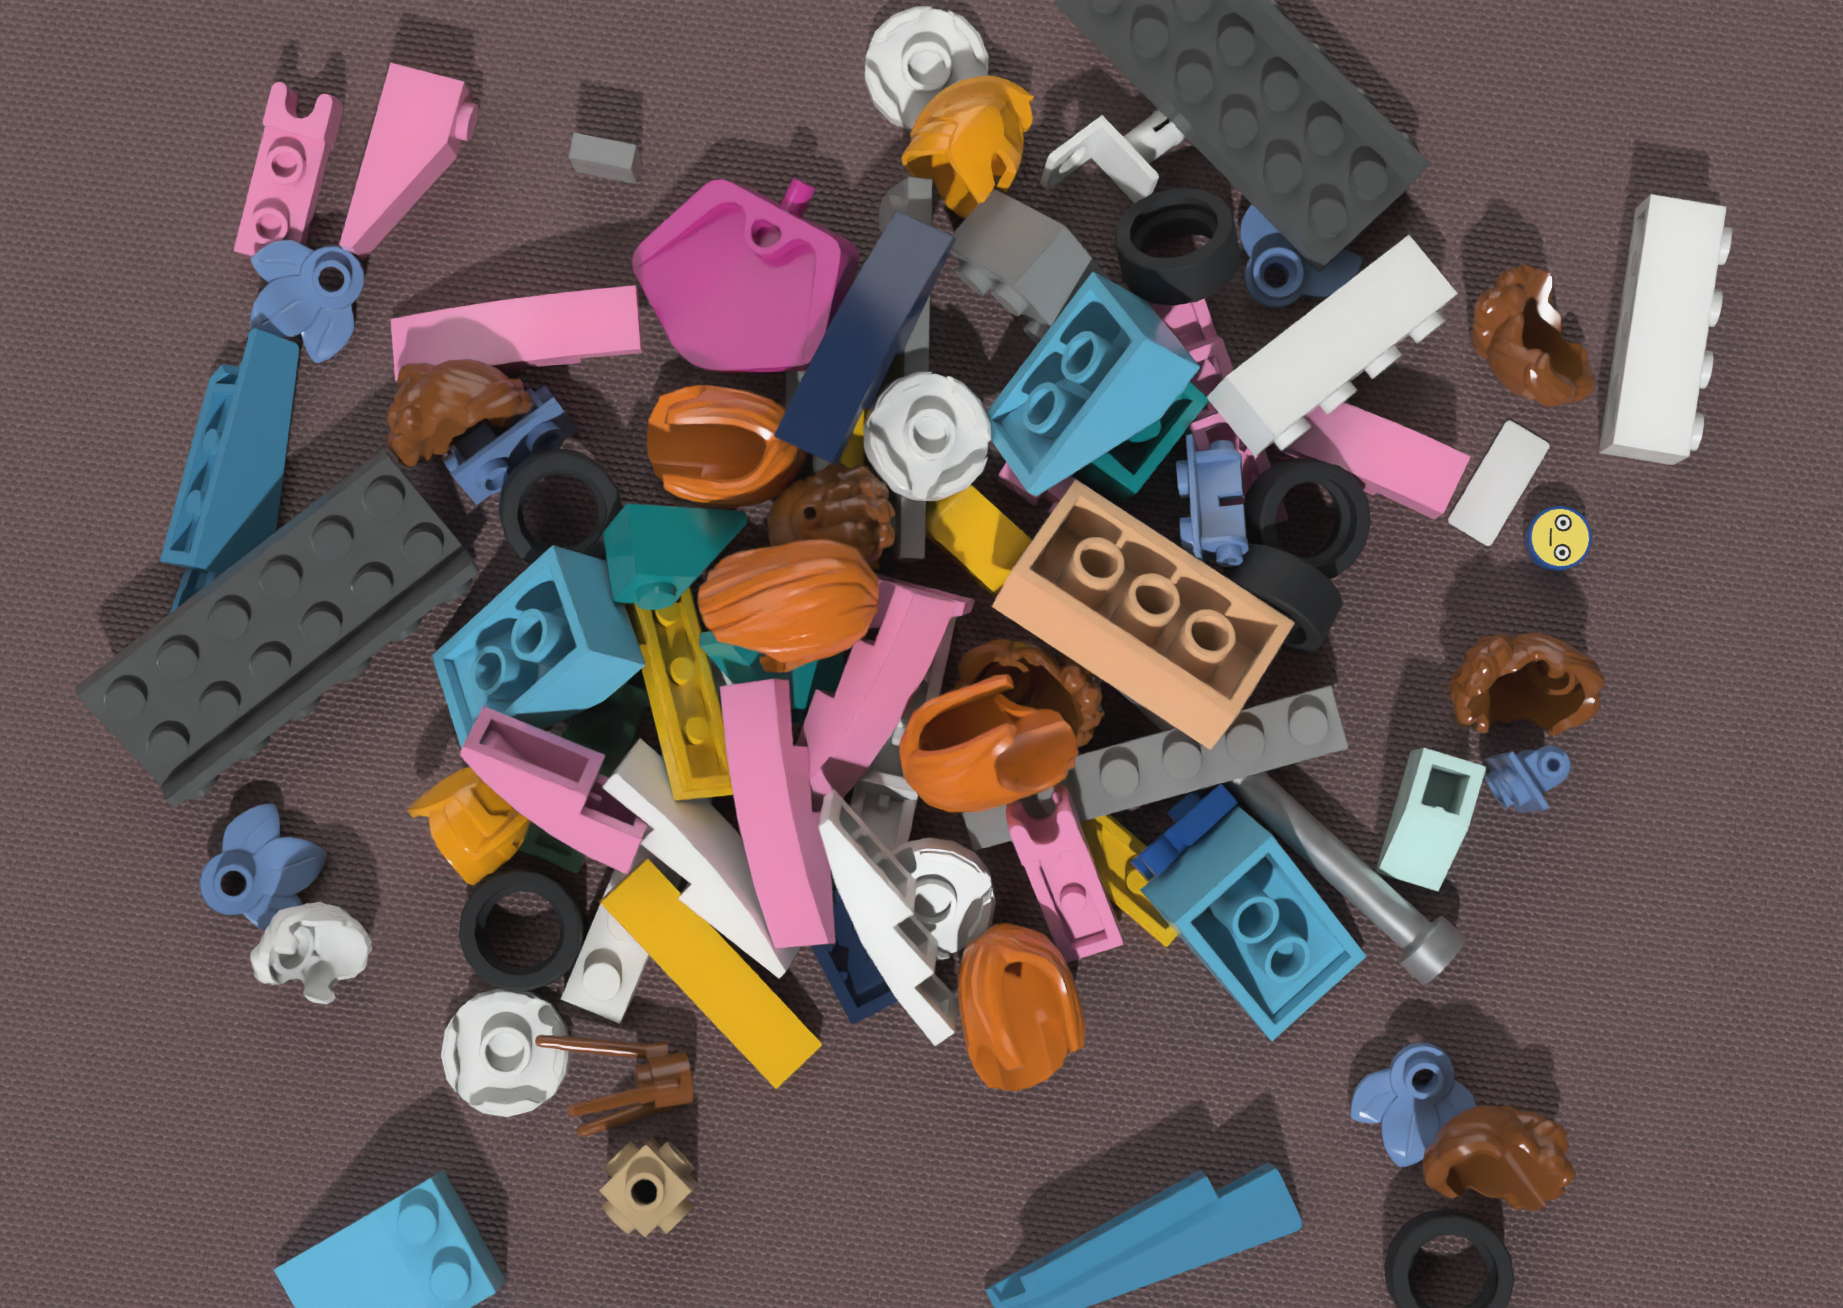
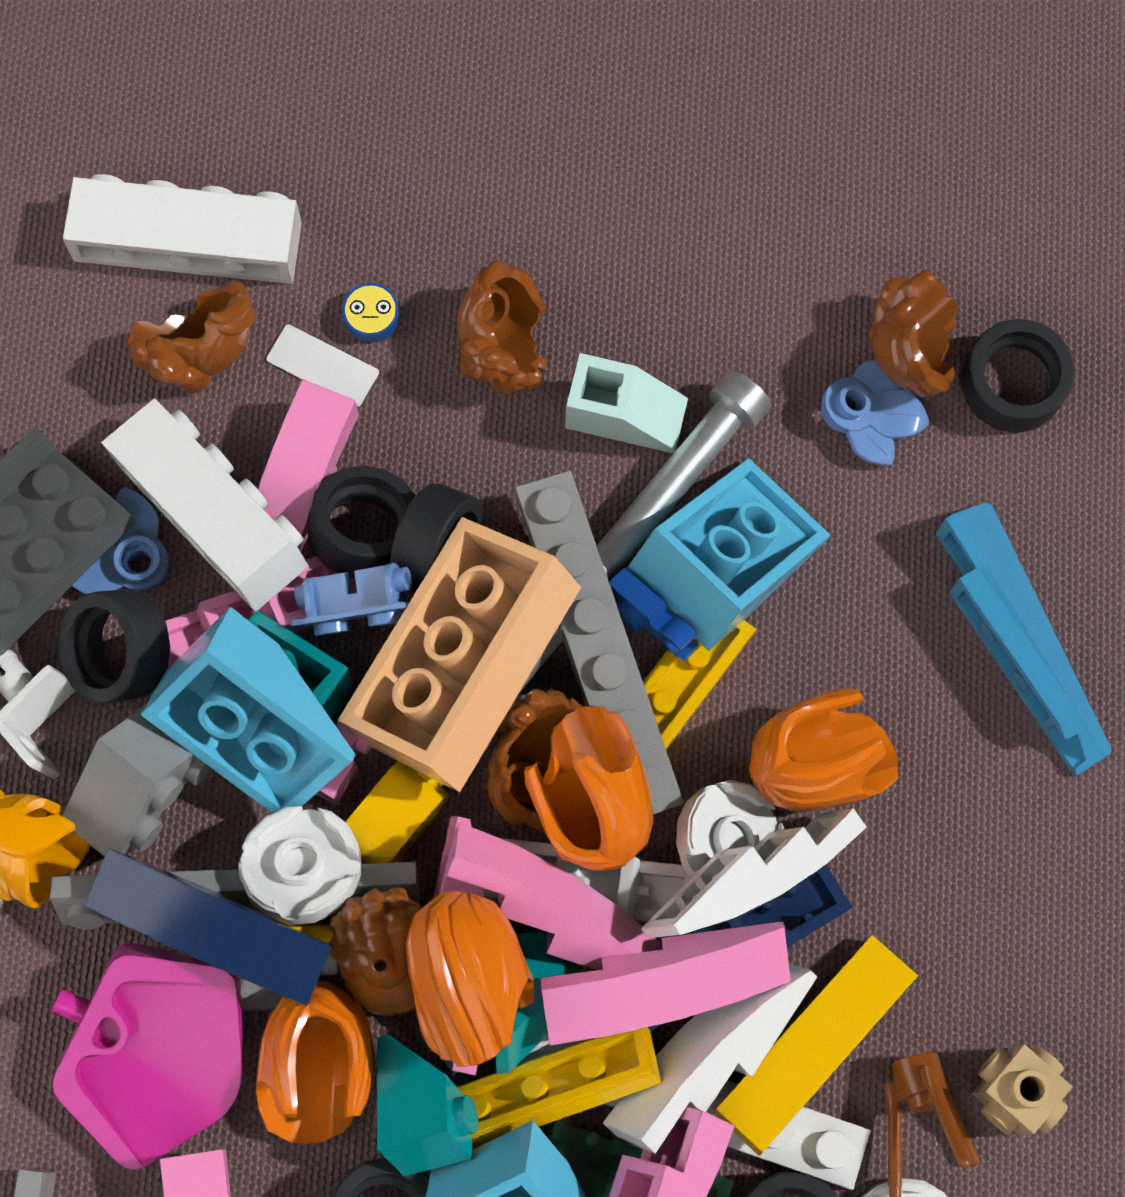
camera: 95 degrees left, 10 degrees down
(1065, 878) = (703, 716): bright pink plate -> none
(1526, 776) = (585, 321): medium blue hinge -> none

